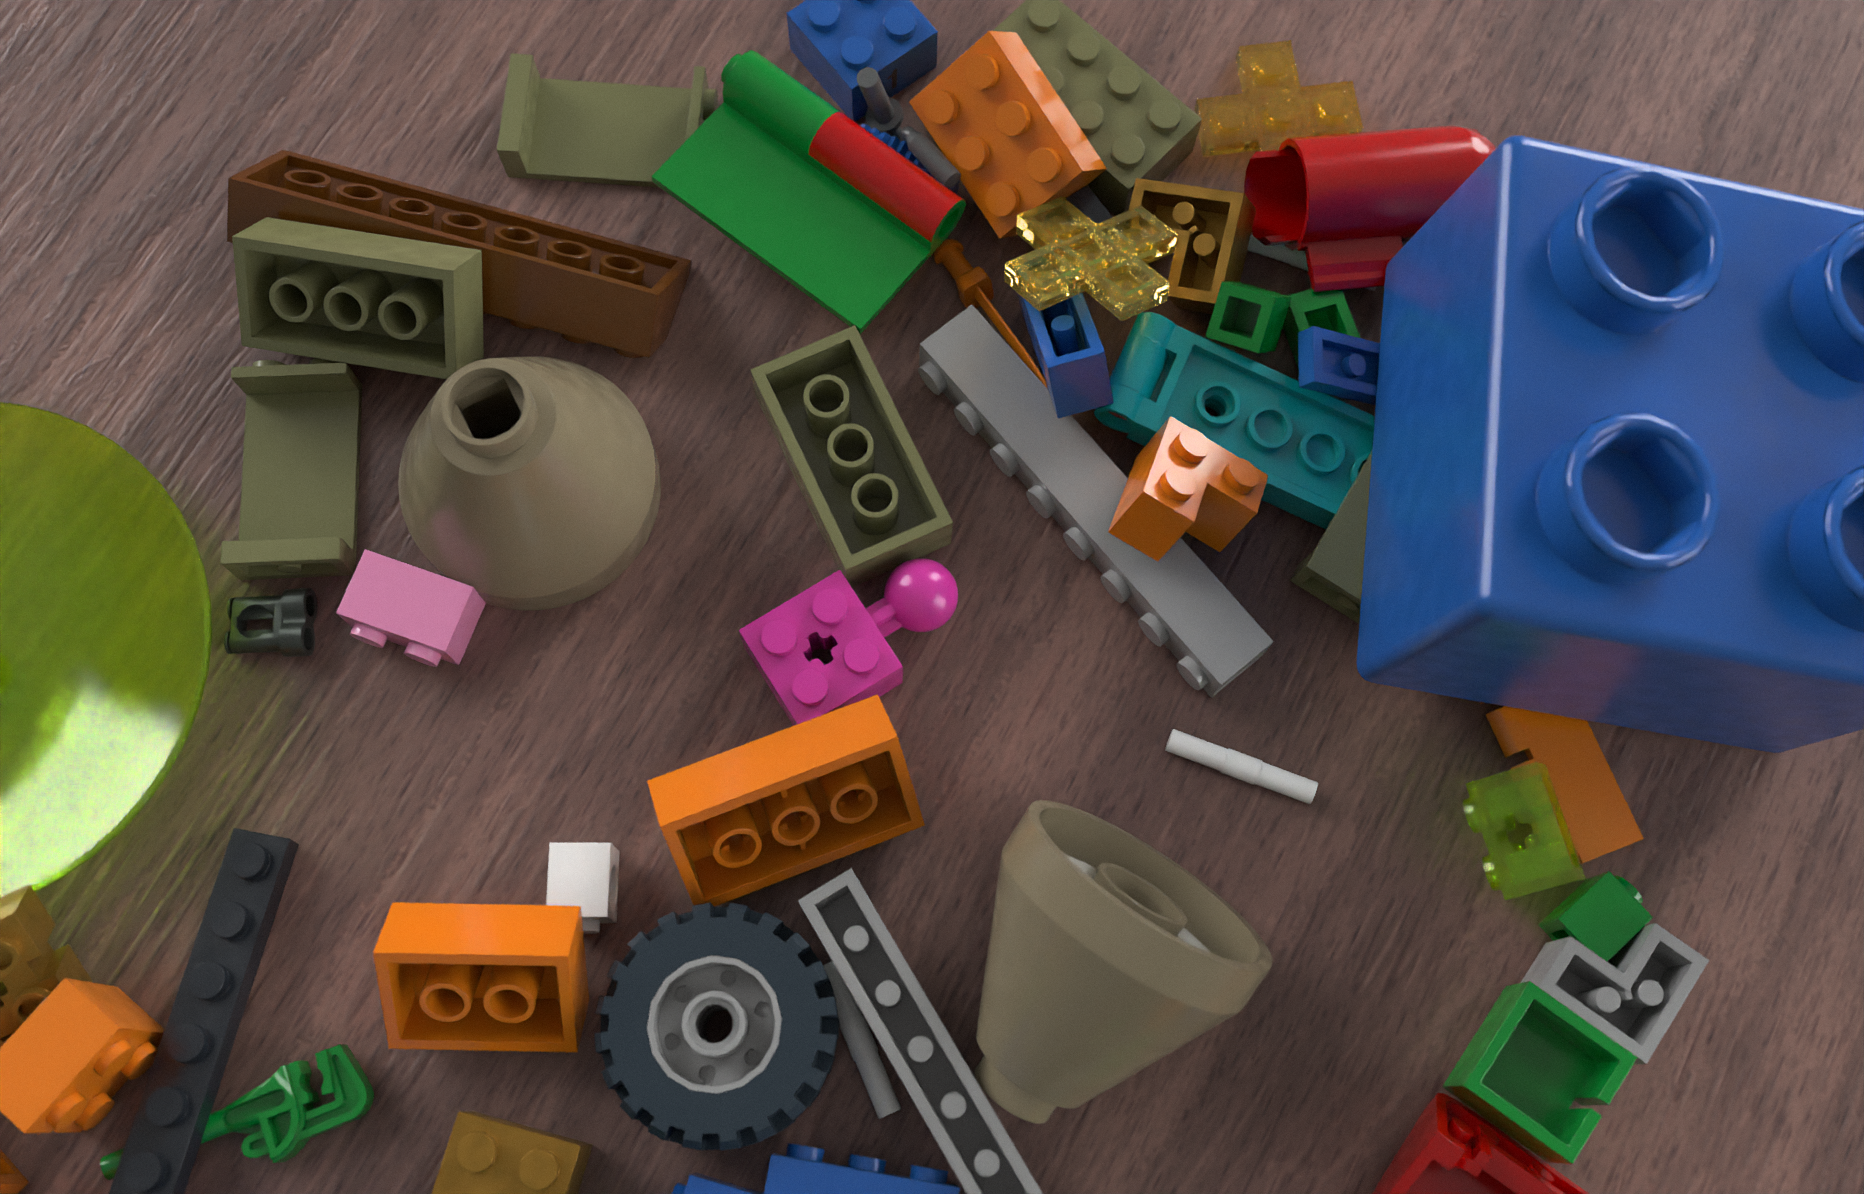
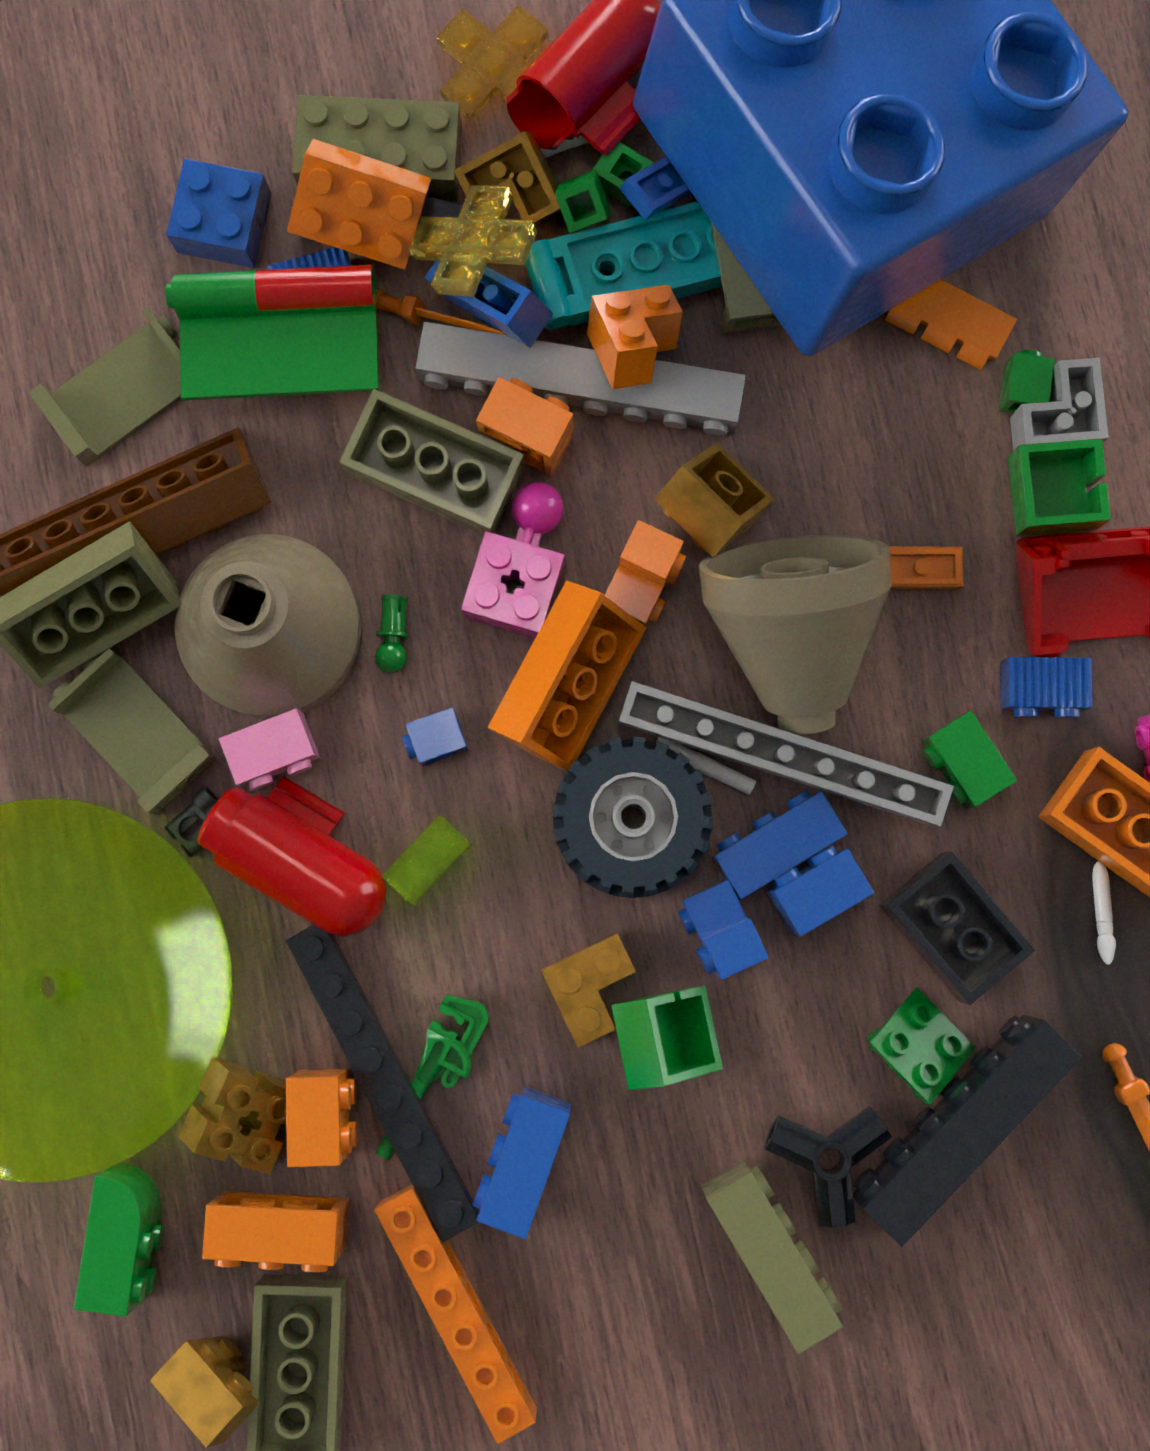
camera: 35 degrees left, 10 degrees up
(318, 742) = (288, 855): none -> red piece
(460, 871) = (427, 860): none -> clear neon green brick
(482, 977) = (491, 897): orange brick -> none
(585, 878) = (496, 811): white brick -> none
(592, 747) = (435, 737): none -> brick
(629, 619) = (391, 654): none -> green pin
(887, 116) = (273, 250): dark grey piece -> none
(975, 762) = (643, 571): none -> orange brick
(986, 497) = (527, 423): none -> orange brick
(1120, 746) = (713, 499): none -> pearl gold brick
(1241, 766) = (788, 454): white piece -> none
(1302, 1029) = (926, 567): none -> orange tile
(1549, 852) = (946, 347): clear neon green brick -> none

